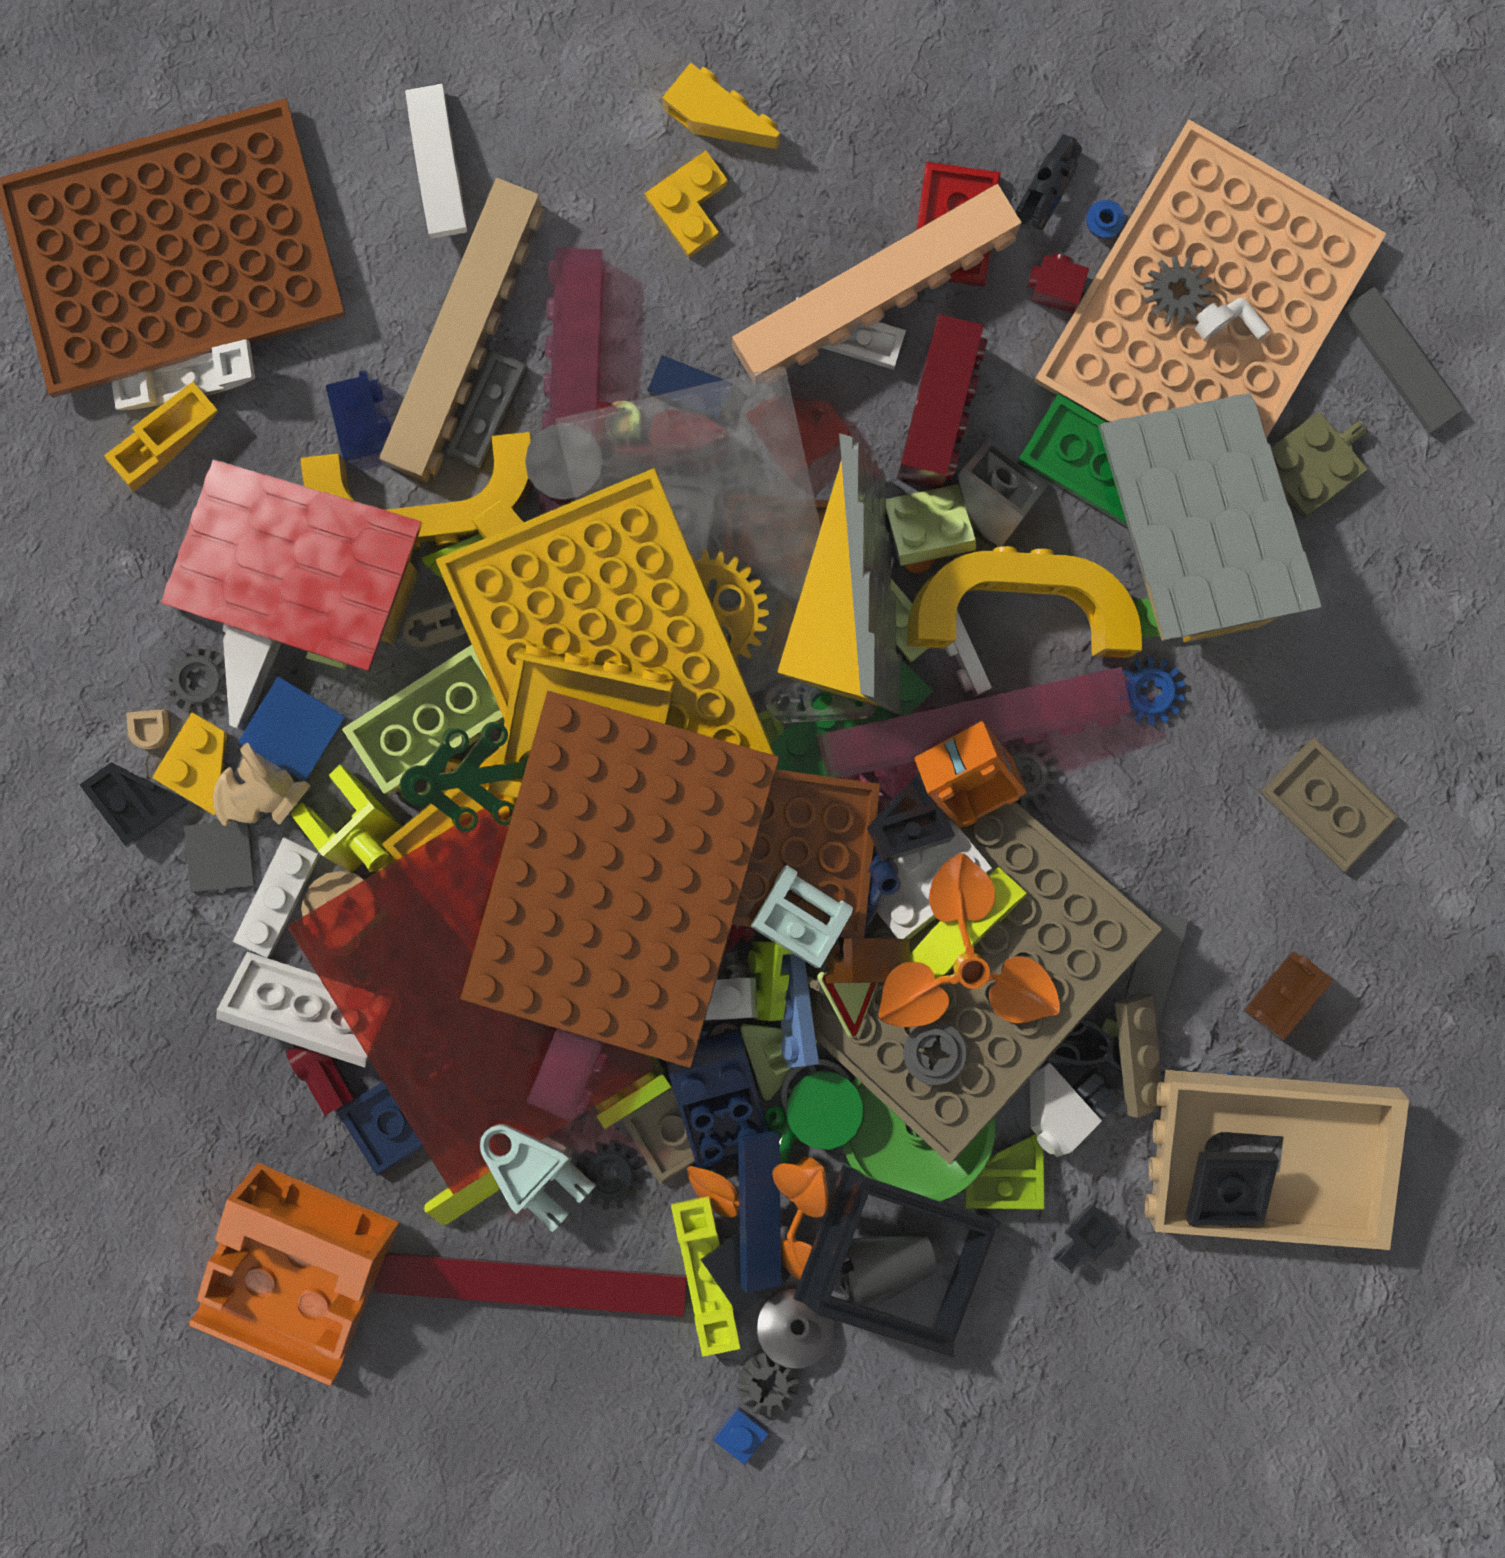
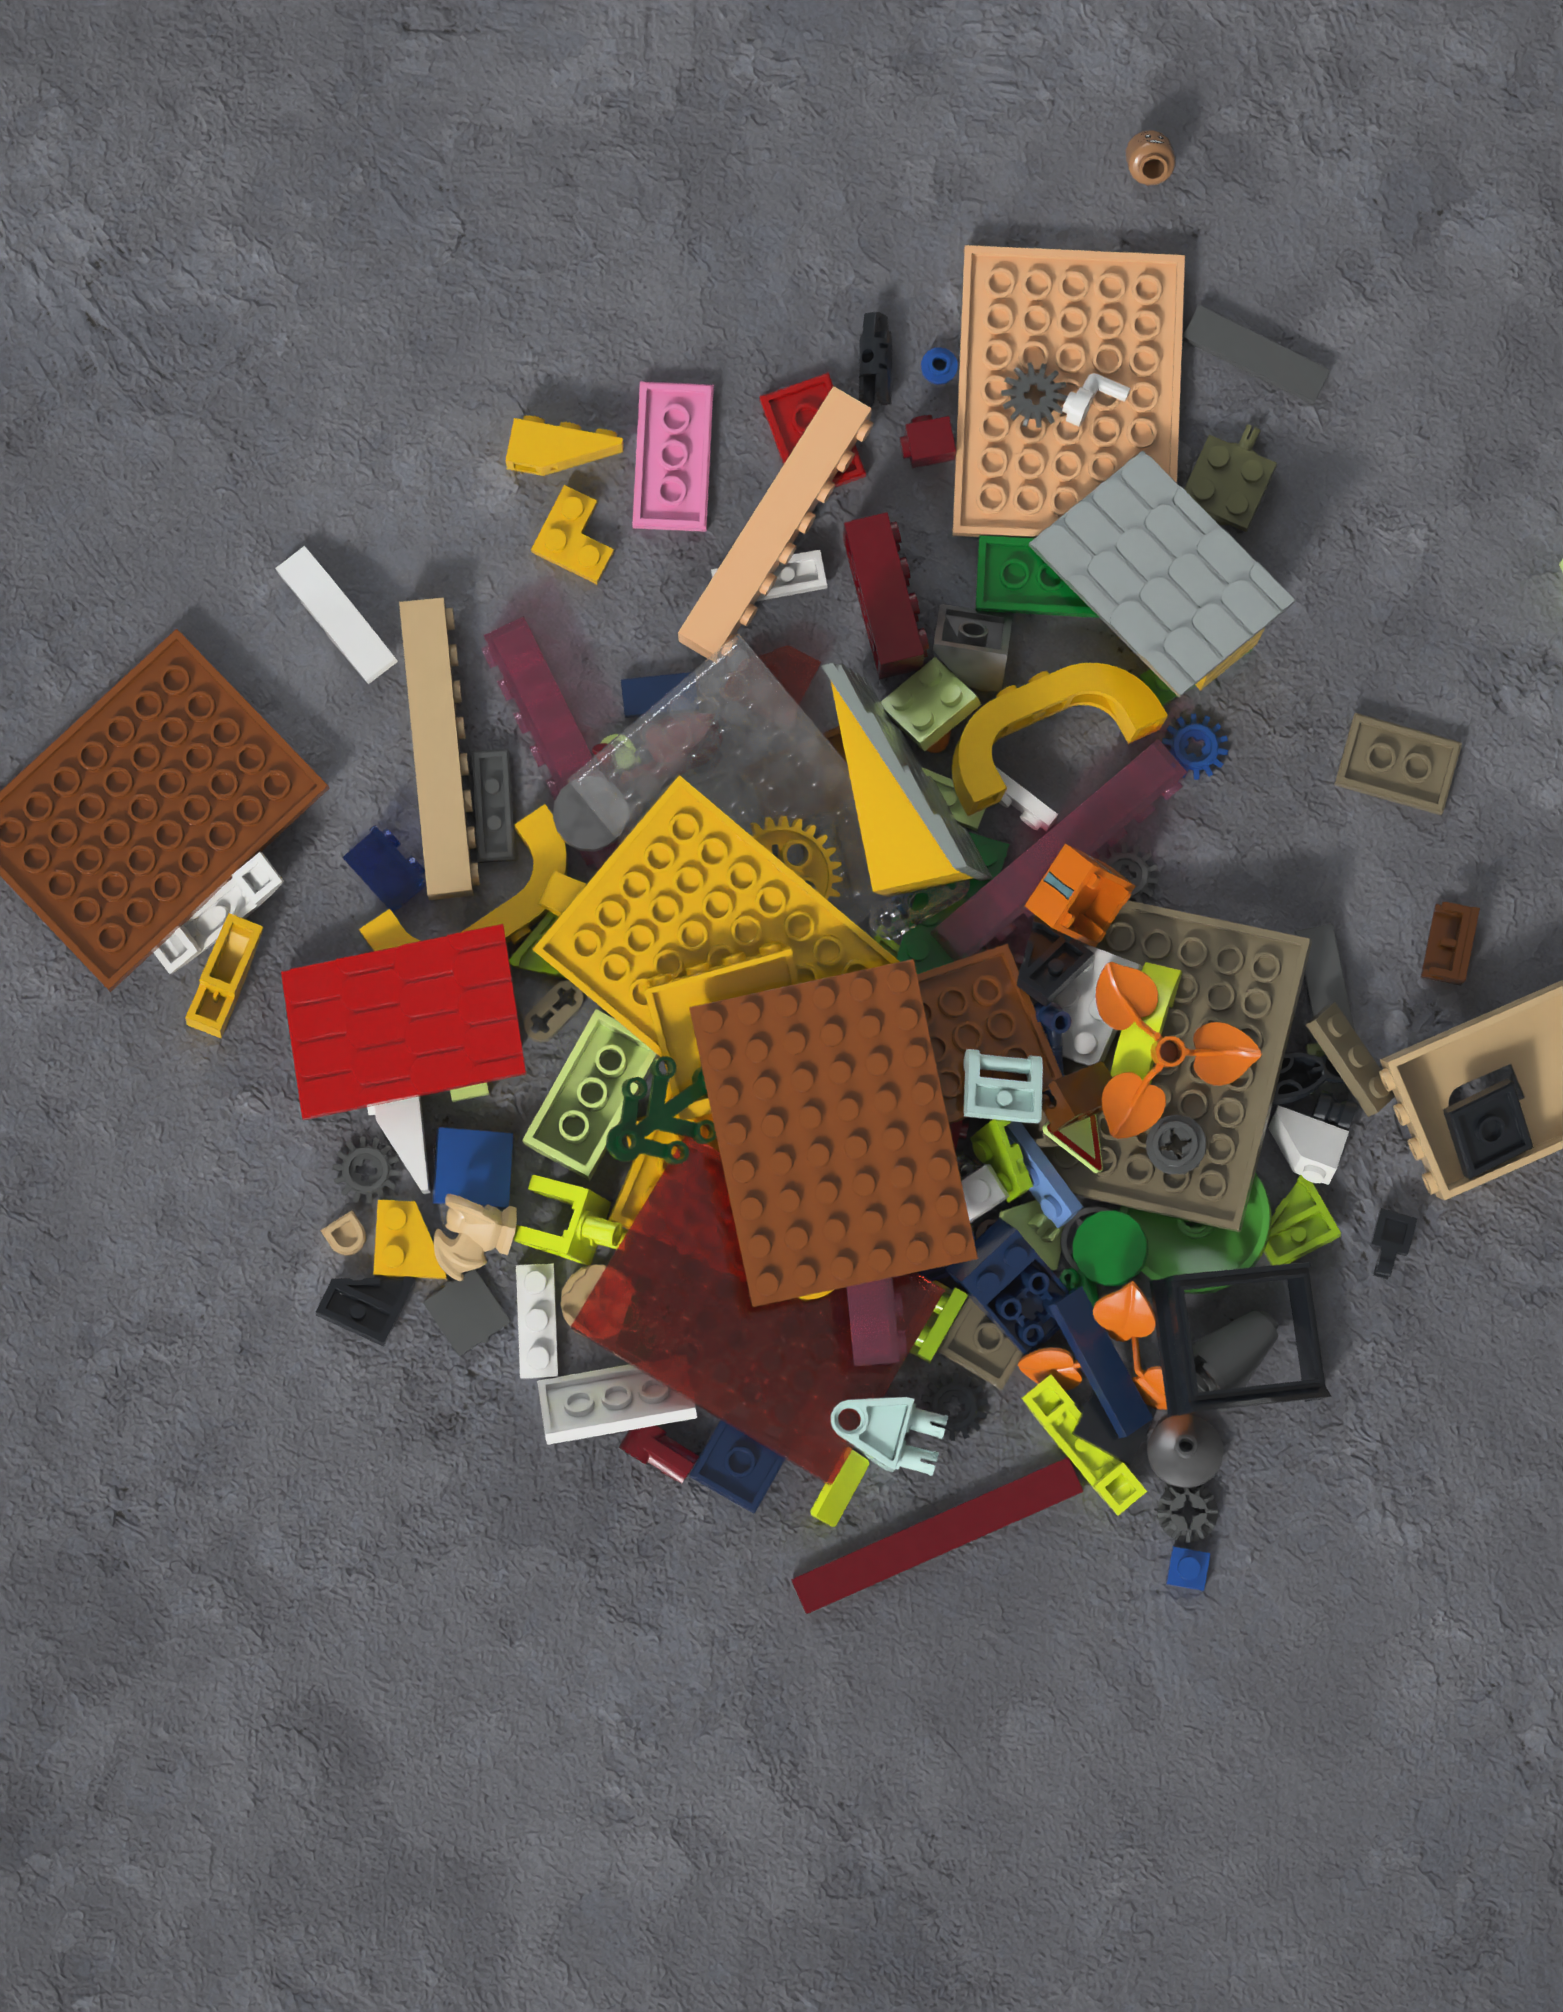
camera: 35 degrees left, 5 degrees down
(292, 1272) = (727, 1634): orange panel -> none
(818, 176) = (673, 456): none -> bright pink tile
(1403, 126) = (1150, 157): none -> medium nougat head

